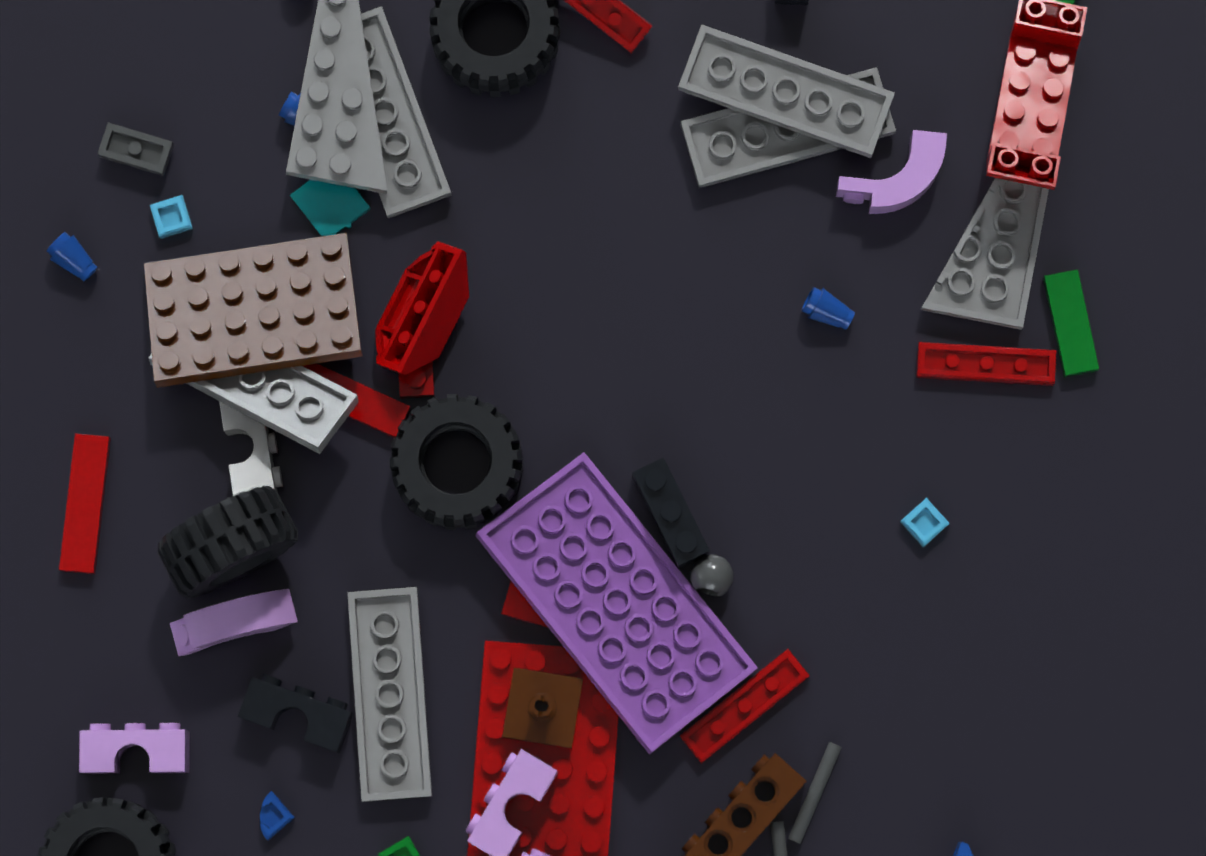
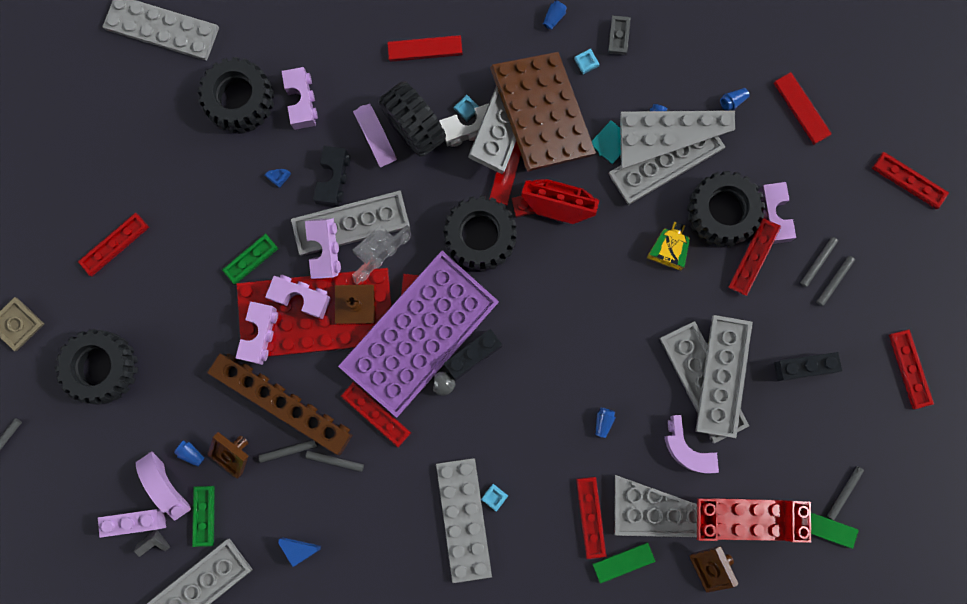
camera: 85 degrees right, 0 degrees up
(214, 447) = (465, 108): none -> medium azure tile
(401, 741) = (324, 232): none -> lavender arch
(447, 651) = (376, 249): none -> clear bracket
(543, 135) = (671, 247): none -> torso
(954, 582) = (464, 520): none -> light grey plate
(1105, 174) = (714, 569): none -> reddish brown tile

